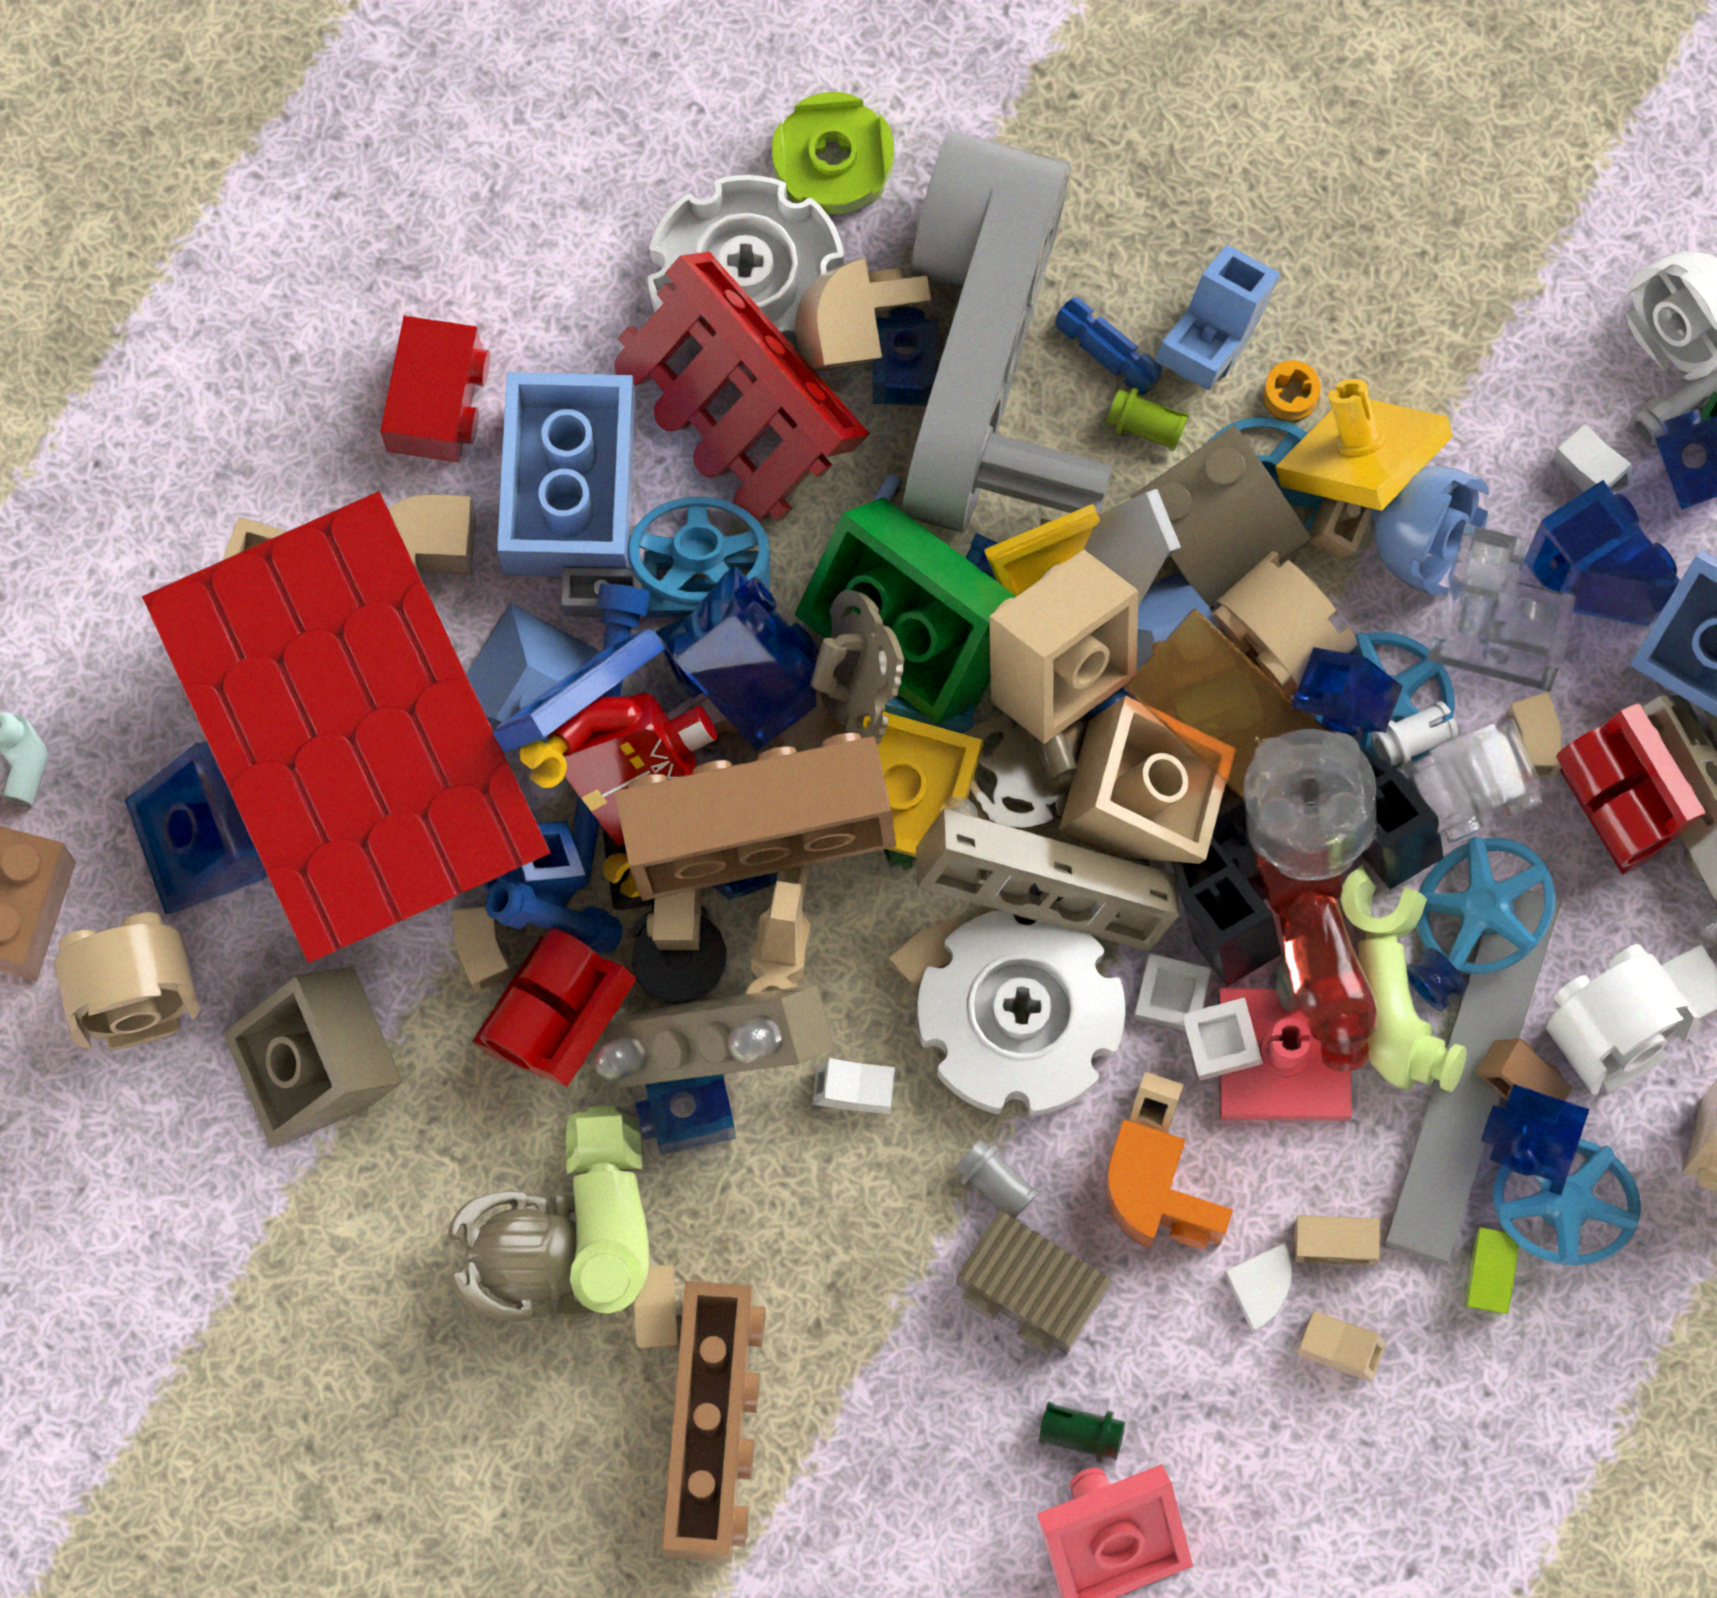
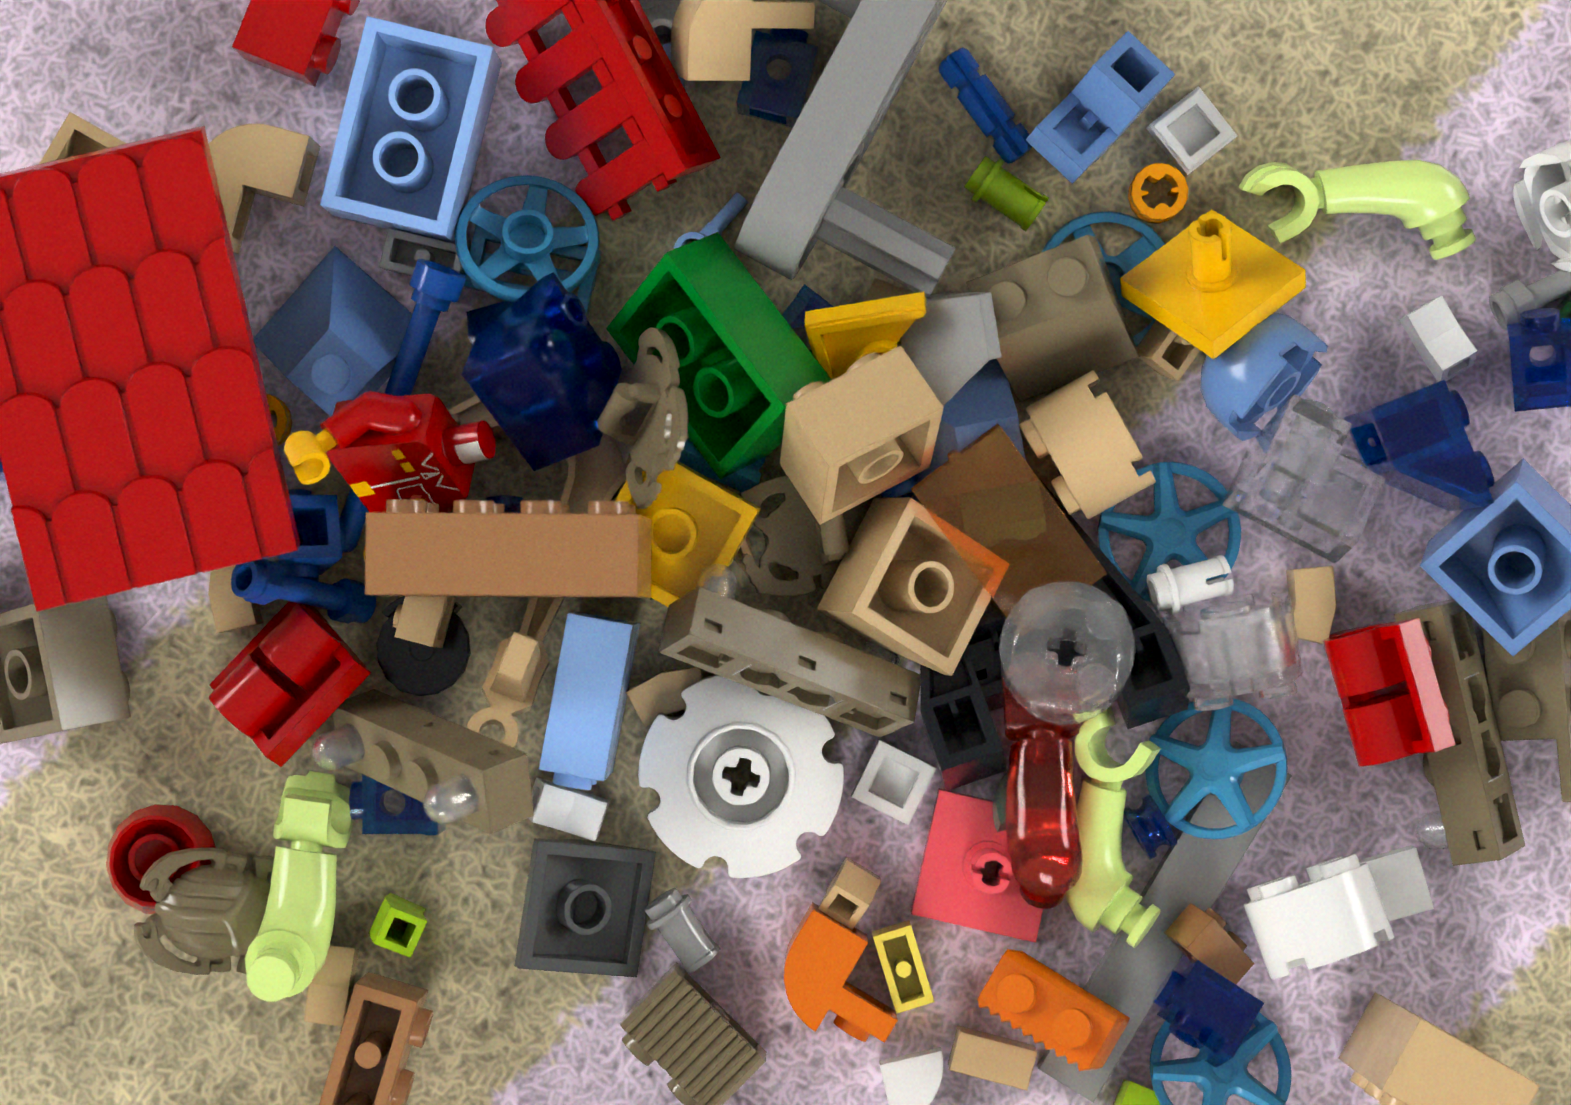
camera: 10 degrees right, 15 degrees up
(428, 1219) = (145, 839): none -> red hat
(578, 690) = (361, 382): tile -> none
(715, 1215) = (390, 938): none -> lime piece
(857, 959) = (588, 699): none -> light blue brick
(895, 1178) = (585, 907): none -> dark grey slope
(1222, 1039) = (928, 846): white tile -> none
(1225, 1166) = (902, 966): none -> light yellow piece
(1309, 329) = (1191, 131): none -> white tile
(1347, 692) = (1130, 539): clear blue brick -> none
(1385, 1168) = (1052, 1010): none -> orange brick
(1522, 334) = (1410, 190): none -> yellowish green piece

